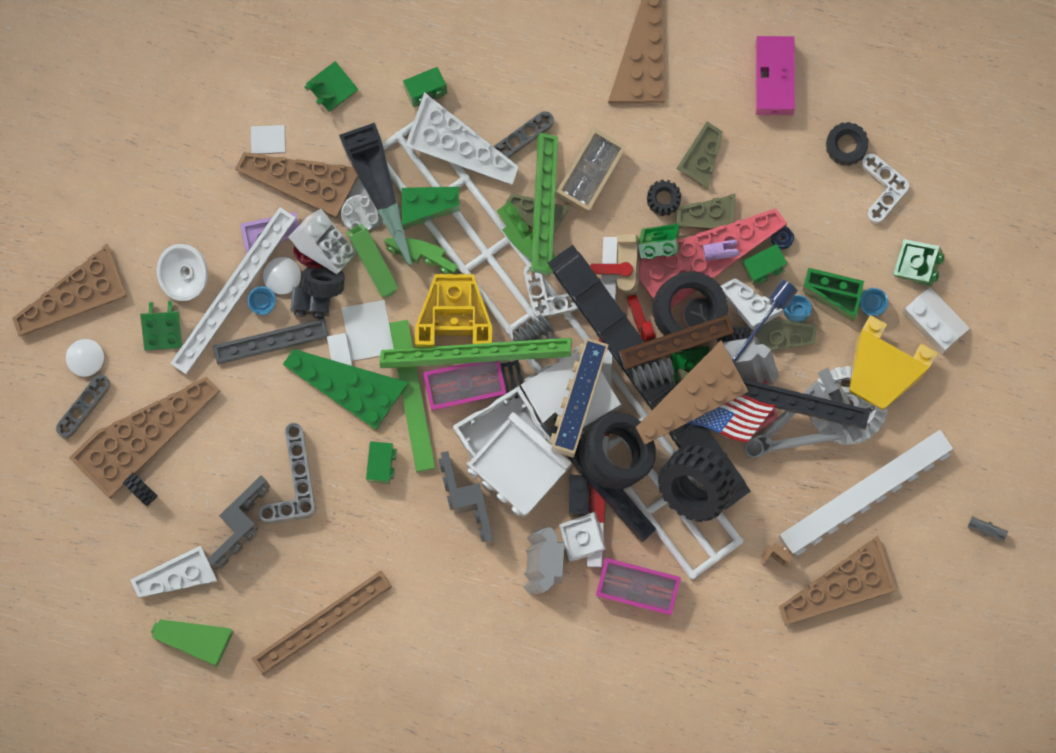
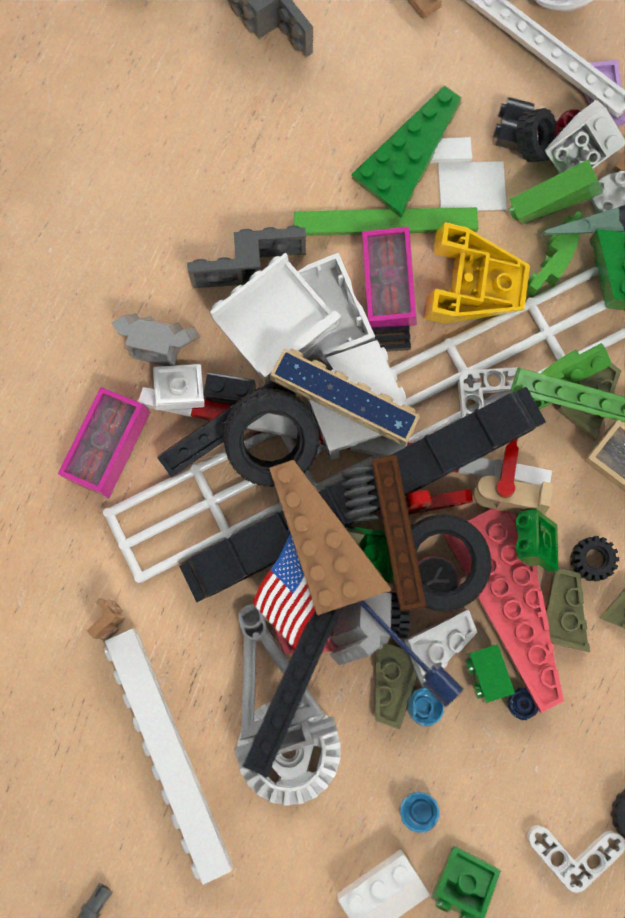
camera: 95 degrees right, 0 degrees up
(262, 300) = (523, 72): dark azure hair -> none
(270, 341) = (473, 79): dark grey tile -> none
(282, 275) = (551, 95): white dish -> none
(298, 480) = (307, 79): light grey beam -> none
(321, 622) = (139, 89): medium nougat tile -> none
(380, 462) = (309, 170): green brick -> none
(476, 353) = (422, 293): bright green plate -> none
(533, 331) = (438, 364): dark grey piece -> none
(706, 469) = (209, 528): black tyre -> none
(718, 250) = (516, 611): lavender hinge -> none
(834, 291) = (441, 761): green wedge -> none
(851, 581) = (58, 711): medium nougat wing -> none
(883, 371) = (323, 806): yellow wedge -> none

